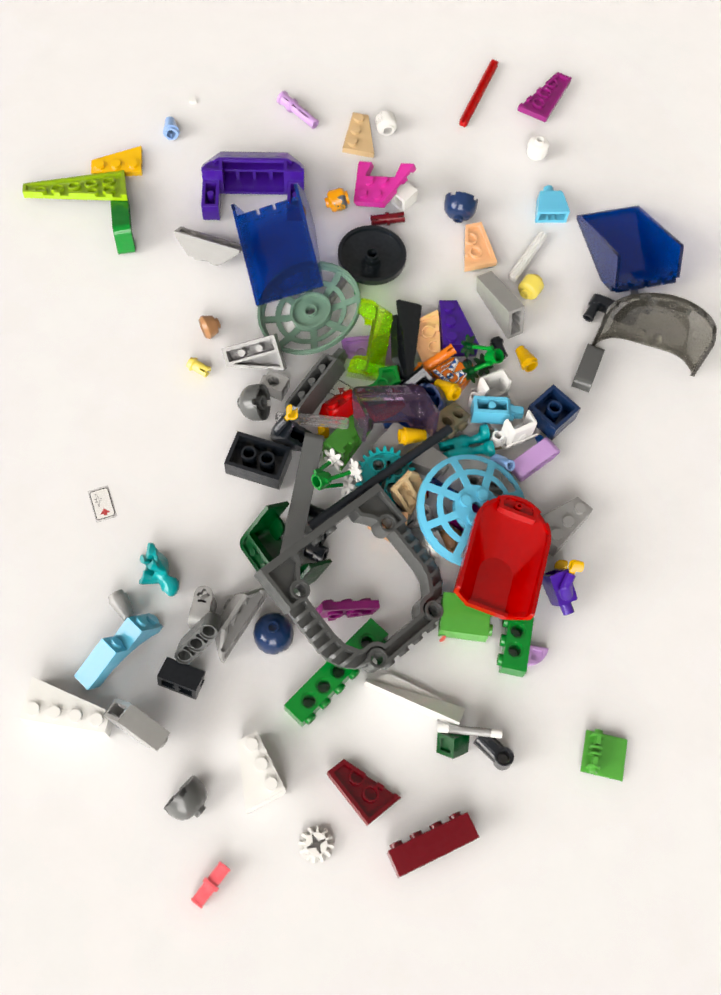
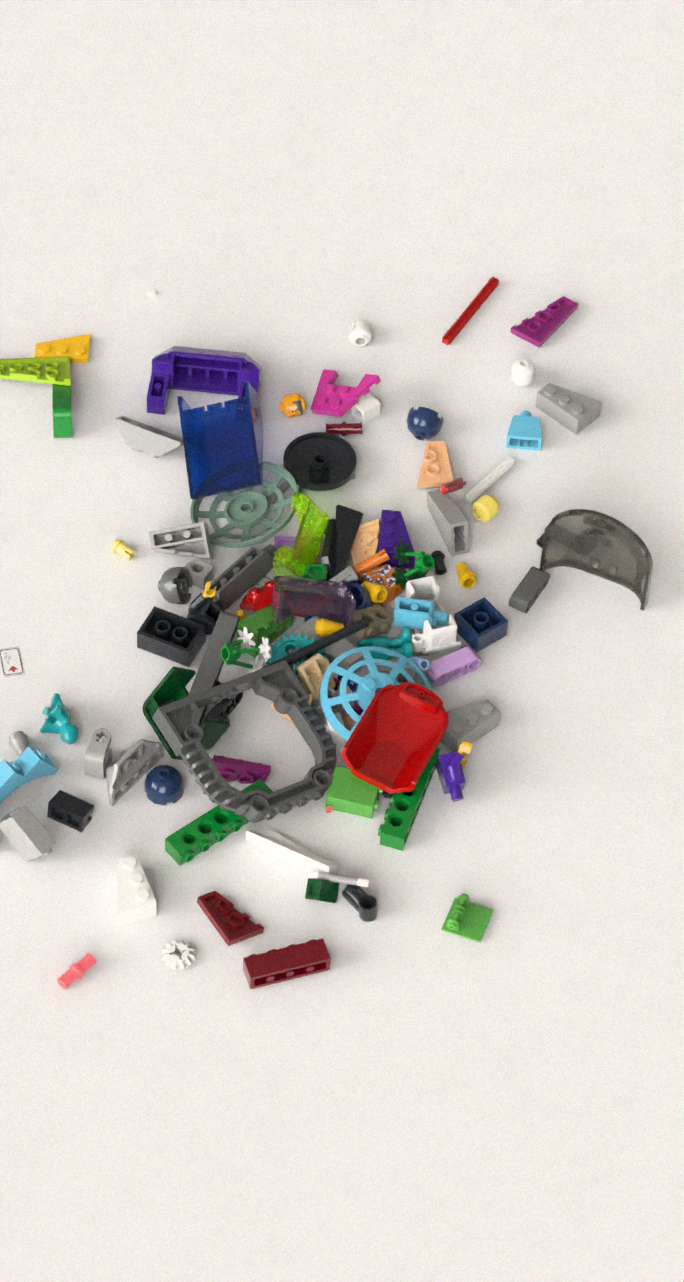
camera: 10 degrees right, 15 degrees down
(170, 128) = (124, 319): light blue cone -> none
(188, 800) = (64, 902): dark grey cylinder -> none
(198, 638) = (85, 778): dark grey beam -> none
(209, 326) = (139, 512): medium nougat cone -> none
(292, 106) = (260, 307): lavender pin -> none
(318, 420) = (239, 604): clear axle -> none
(358, 137) = (328, 344): tan wing -> none
(499, 268) = (452, 486): none -> red axle
(536, 654) = (418, 833): lavender tile -> none
(584, 178) = (568, 407): none -> light grey wedge
(631, 249) = (601, 478): clear blue windscreen -> none

